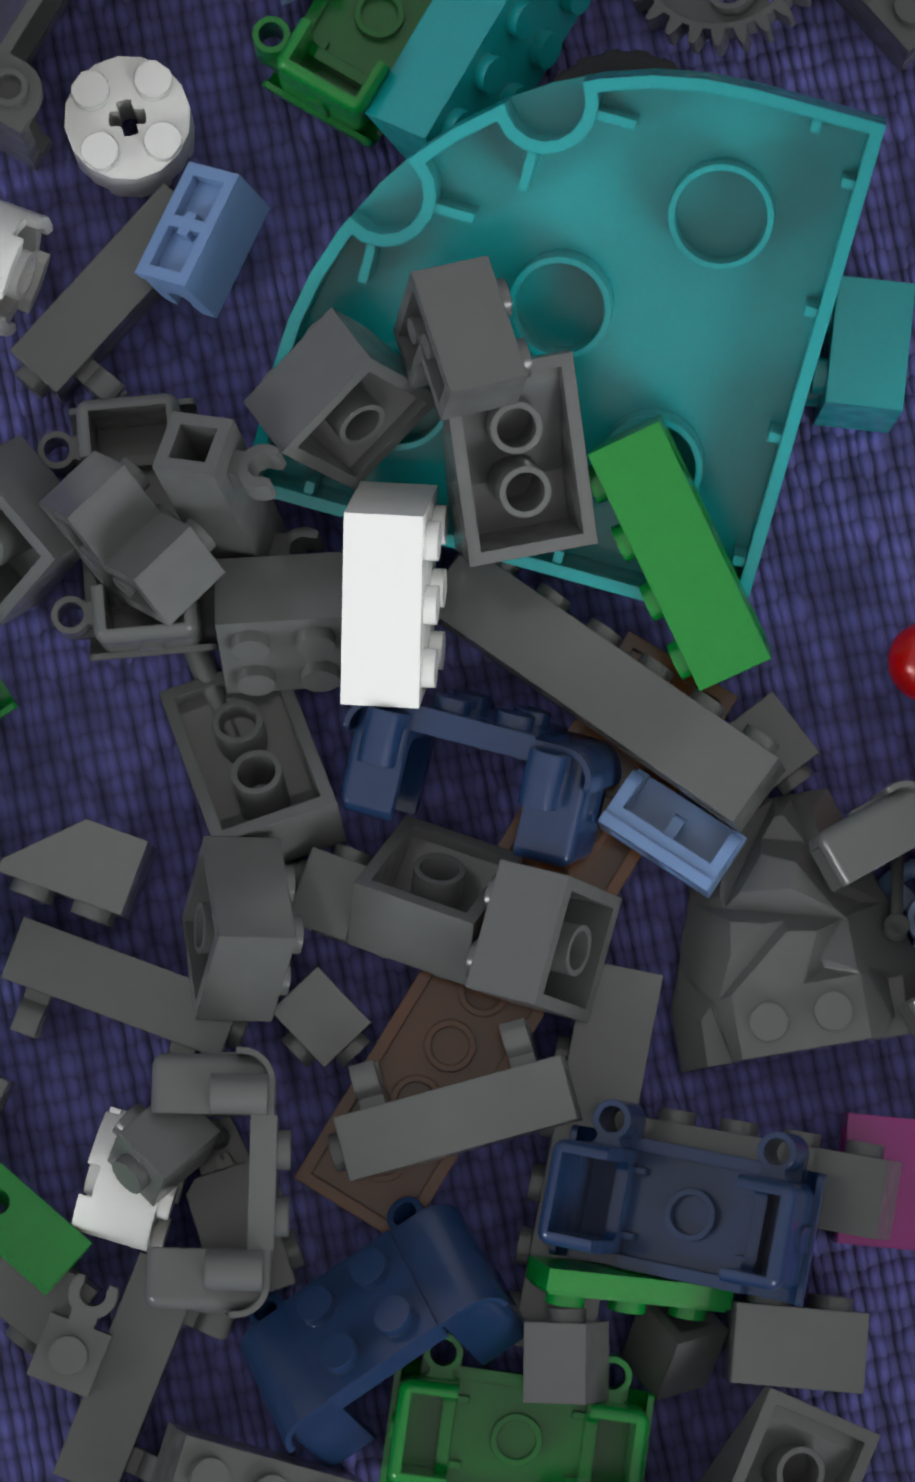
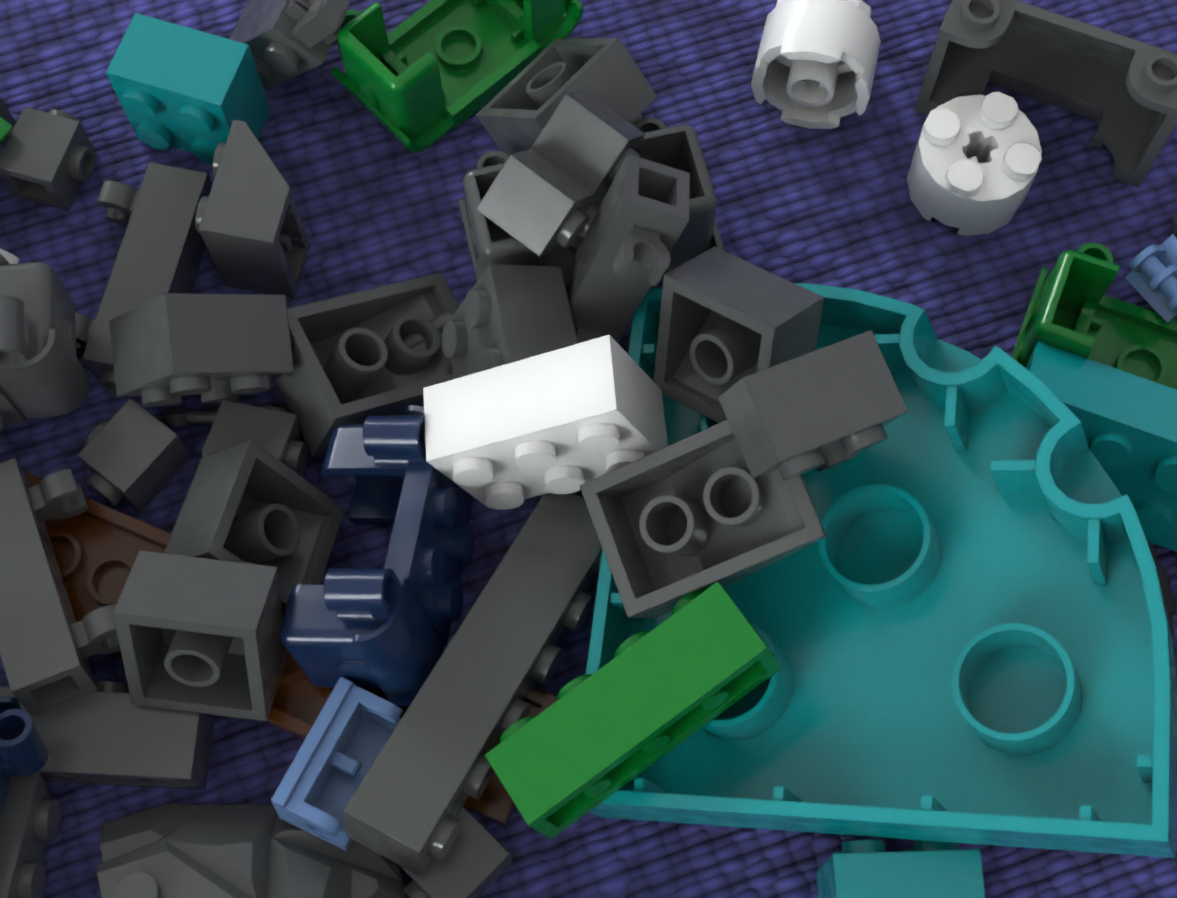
camera: 85 degrees right, 15 degrees down
(92, 315) = (810, 177): dark grey brick -> none
(203, 238) = (878, 228): medium blue hinge -> none

